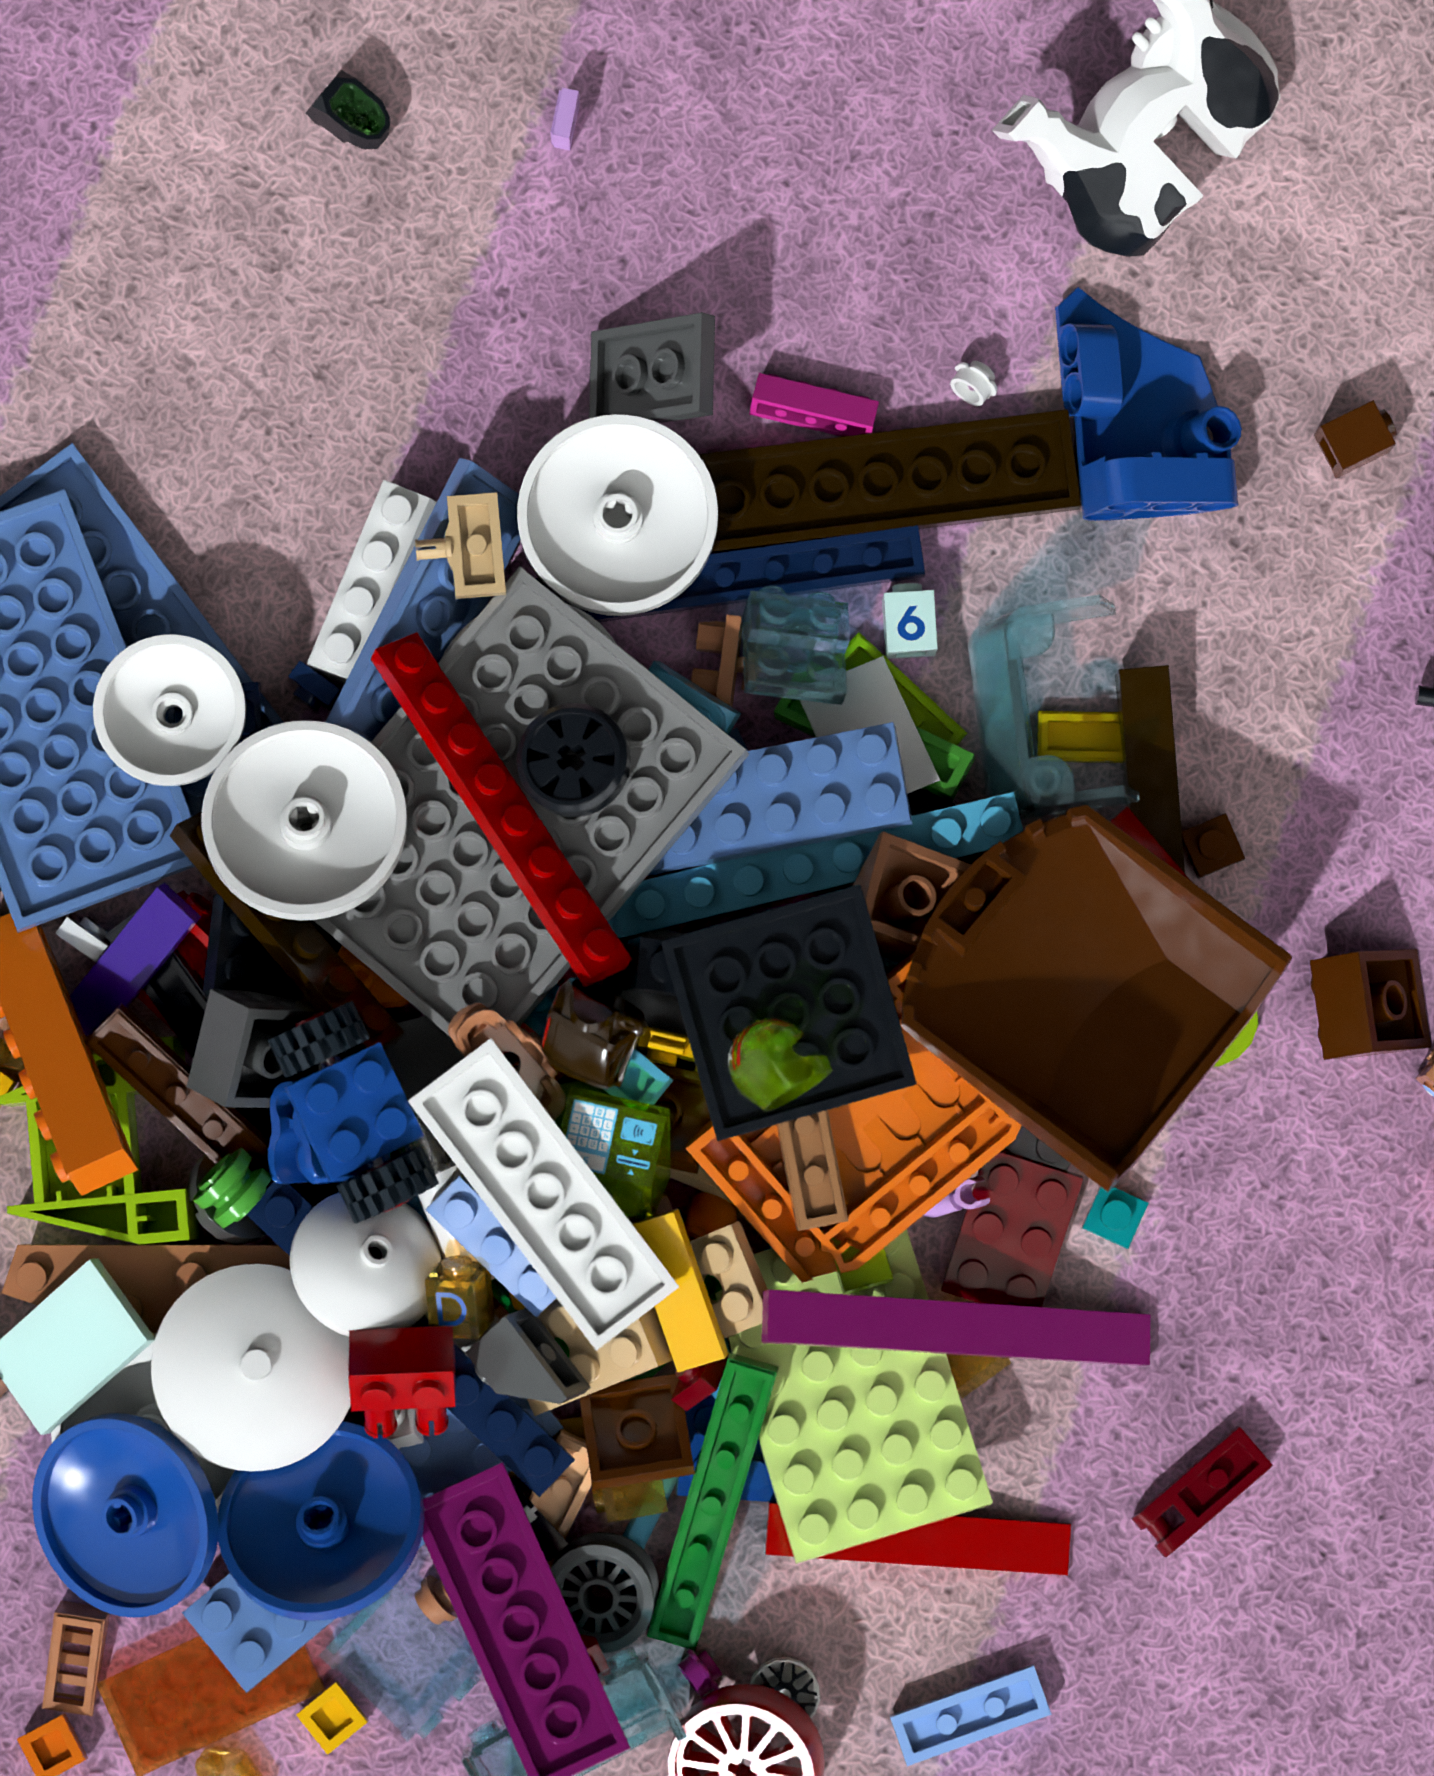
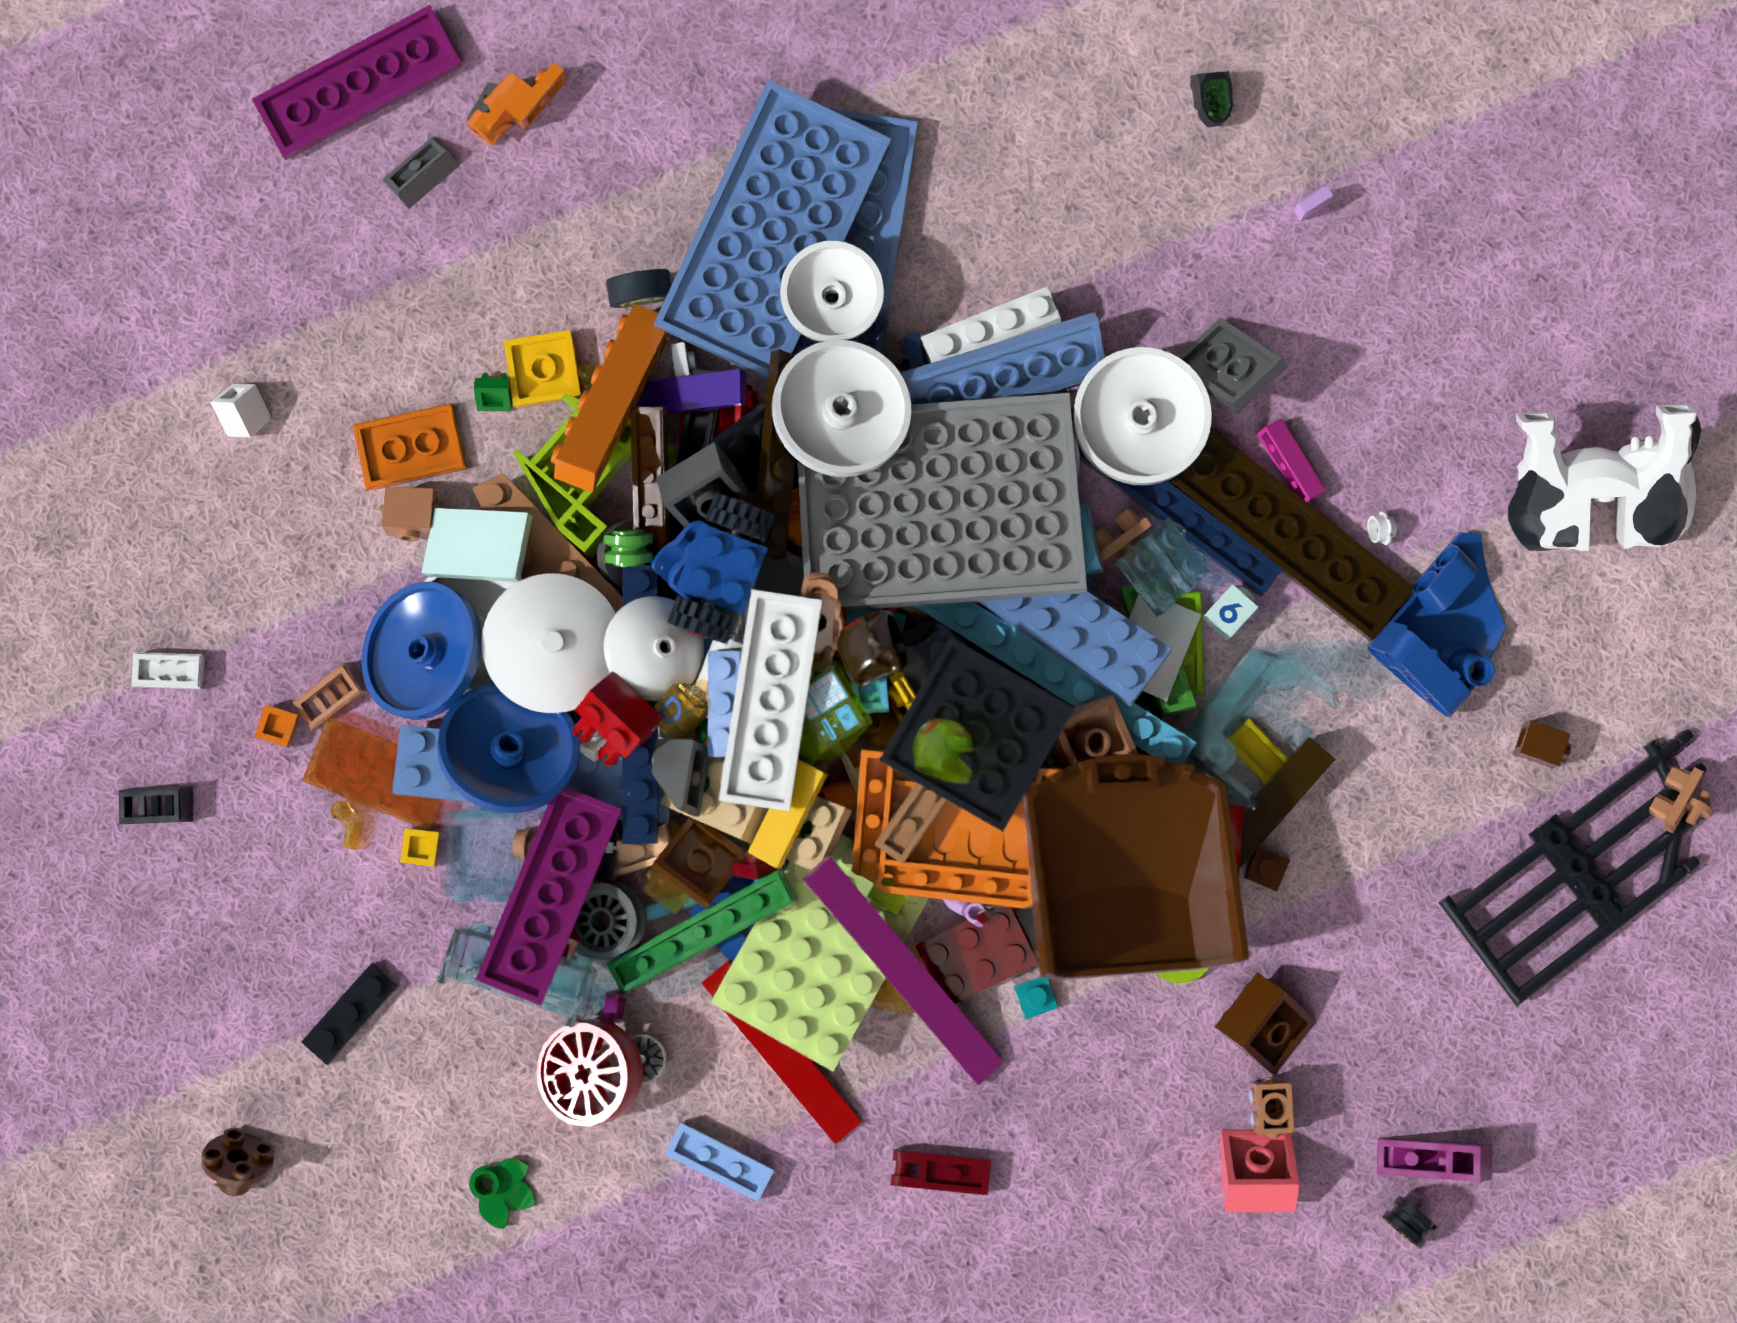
camera: 50 degrees right, 0 degrees up
(470, 546) = (1055, 358): tan plate -> none
(501, 809) = (939, 498): red plate -> none
(579, 729) = (981, 520): black wheel -> none

